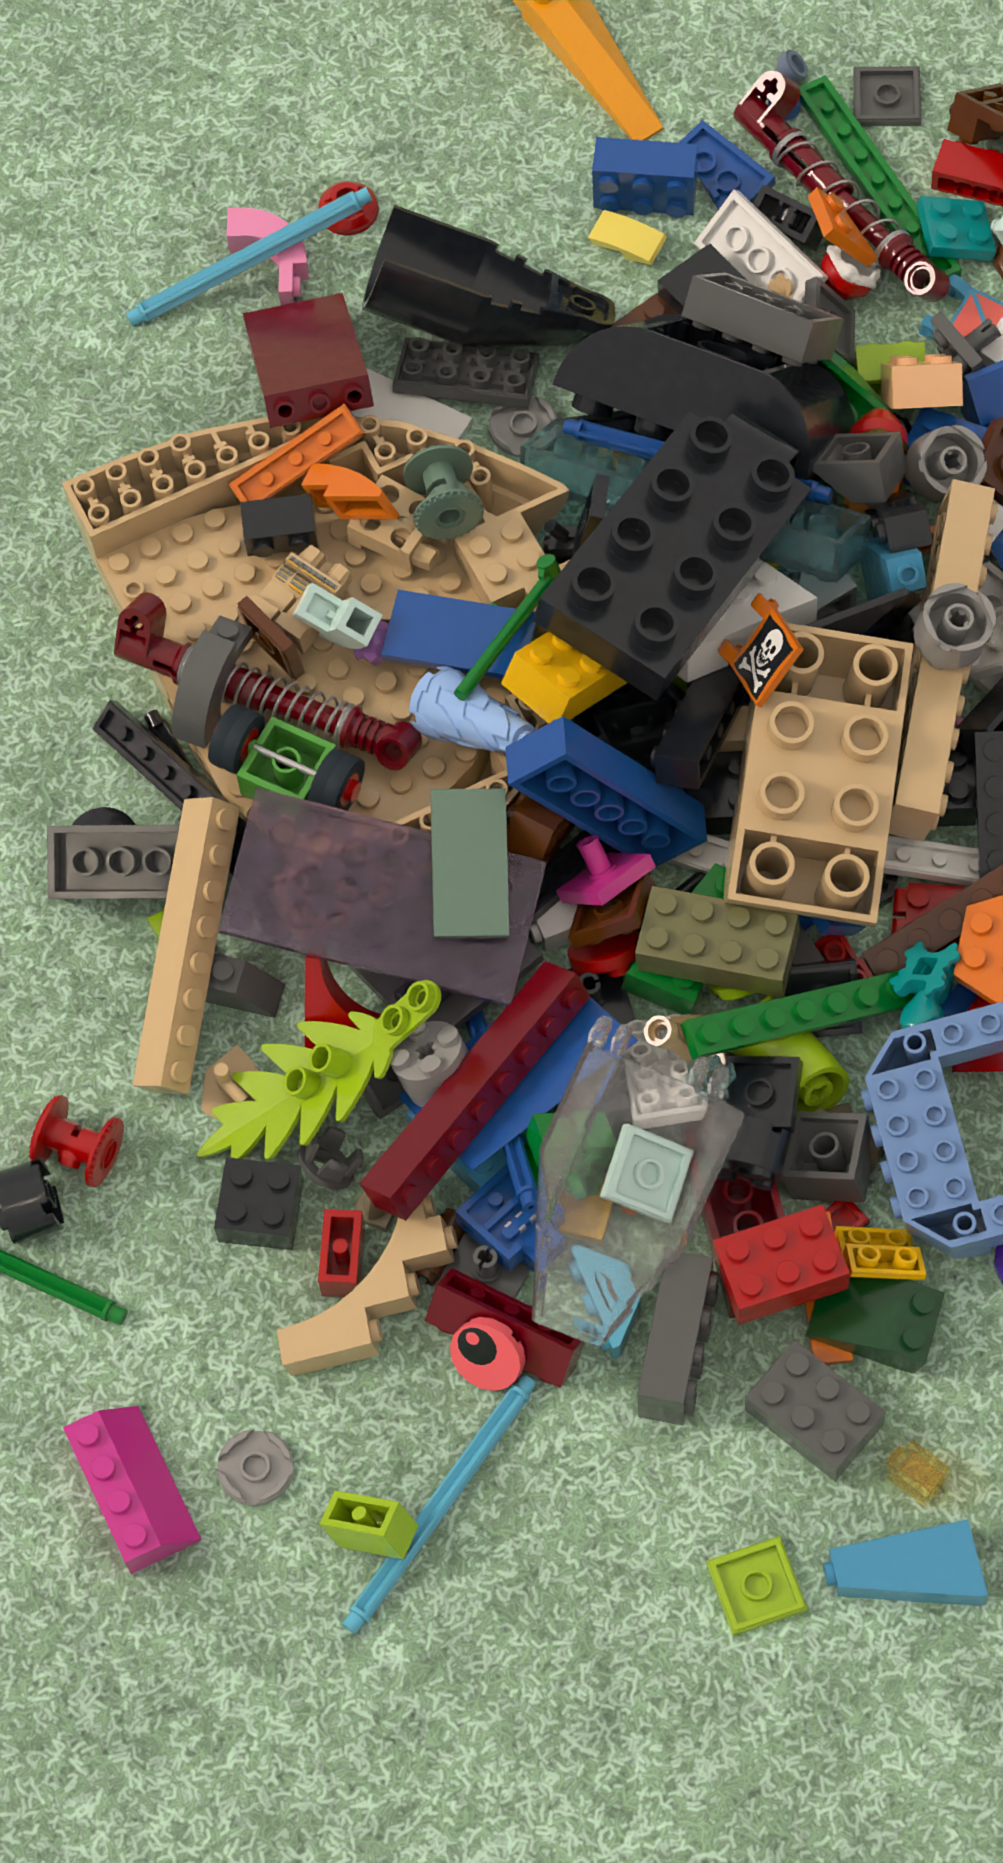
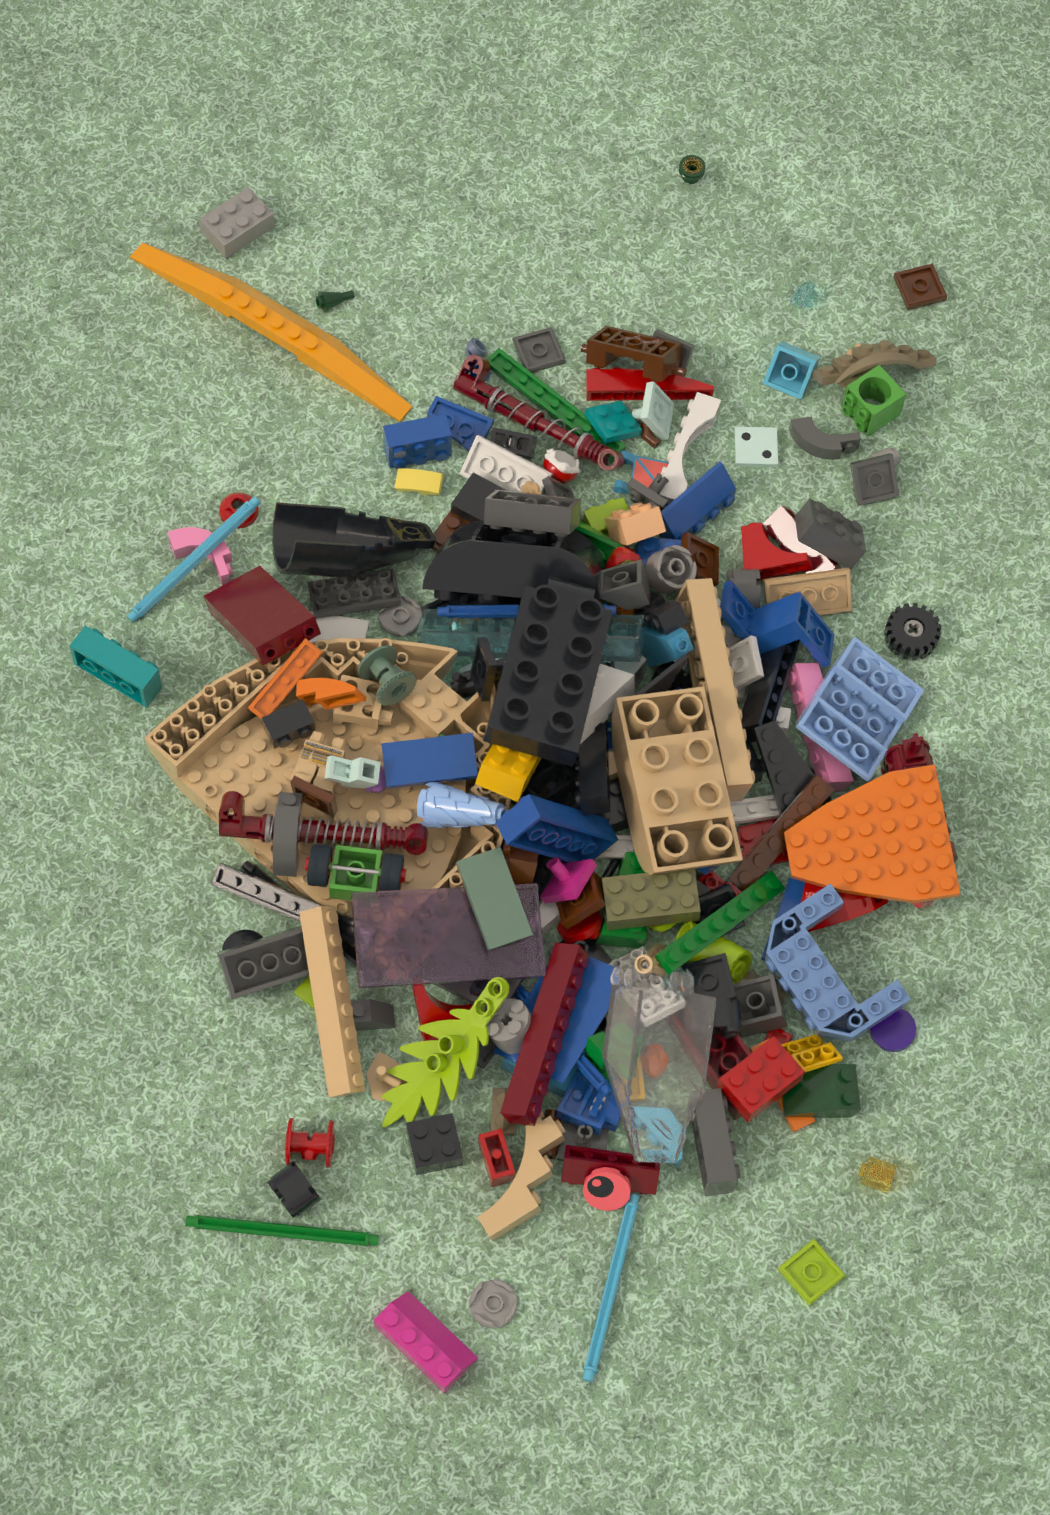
camera: 30 degrees left, 0 degrees up
(77, 376) = (116, 666): none -> teal brick
(337, 1169) = (473, 1108): dark grey piece -> none
(369, 1524) = (578, 1314): lime brick -> none
(547, 572) = (472, 712): green bar -> none
(646, 1173) = (667, 1051): light aqua tile -> none
(766, 654) = (624, 719): flag -> none
(814, 1410) = (806, 1158): dark grey brick -> none
(839, 227) = (548, 441): orange wing -> none
(912, 1566) = (896, 1230): dark azure slope -> none
(930, 980) = (777, 882): teal animal -> none
(954, 626) = (724, 669): light grey brick -> none

